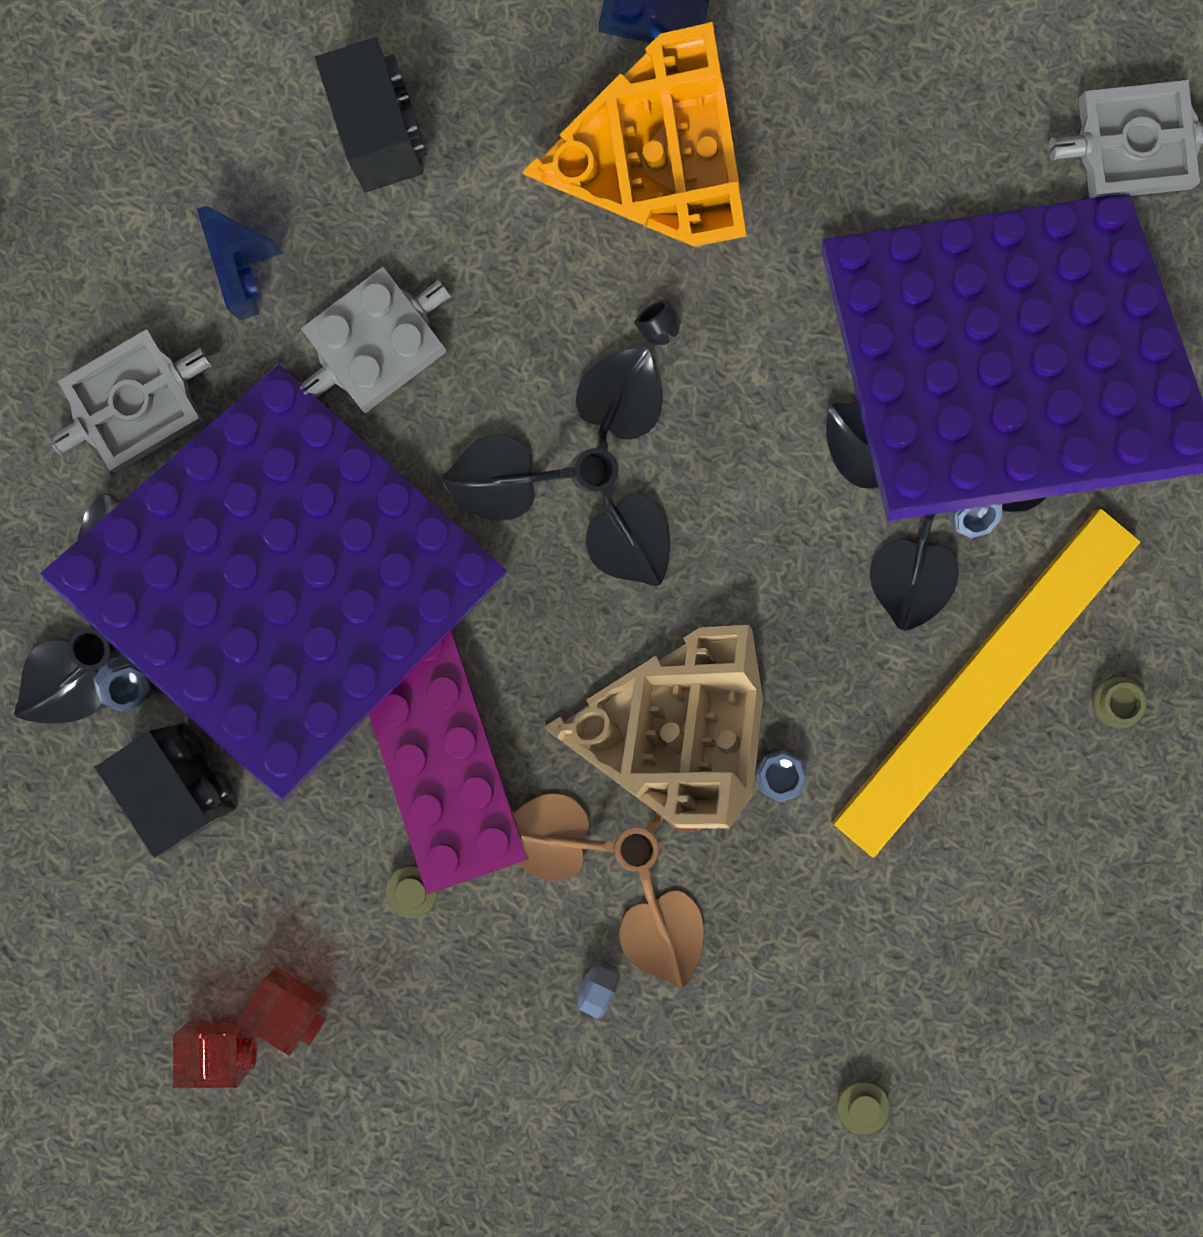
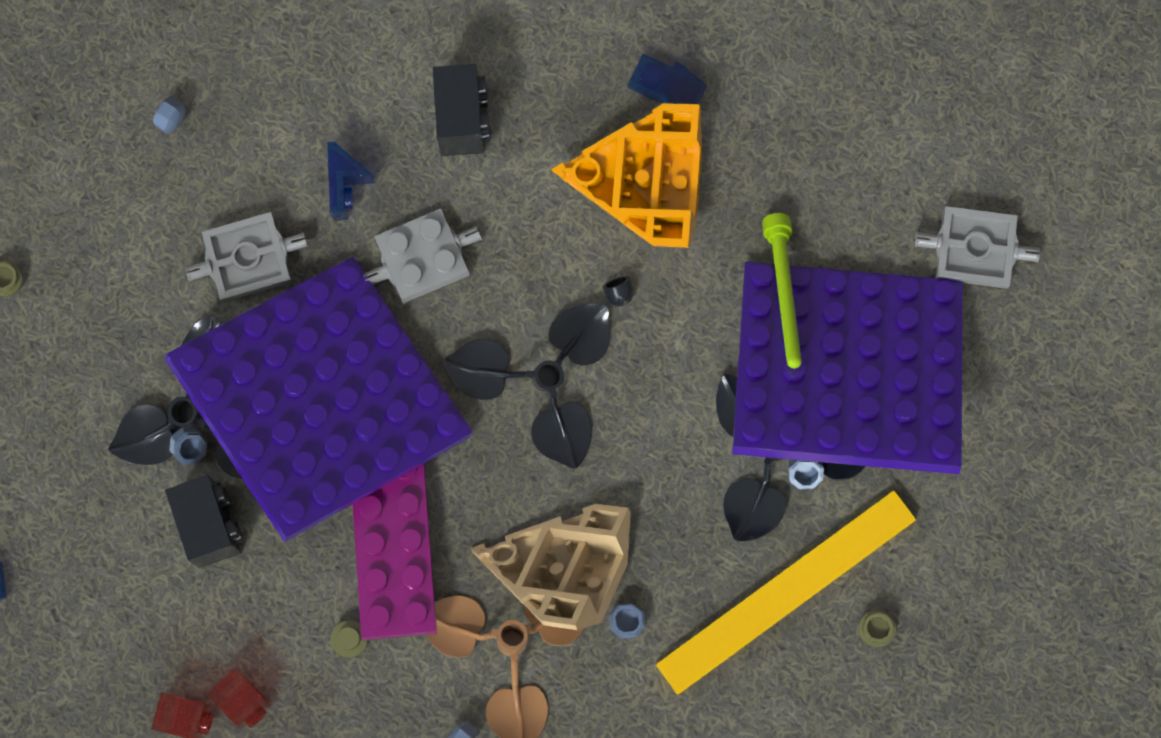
camera: 15 degrees right, 10 degrees down
(858, 184) = (777, 230): none -> lime piece

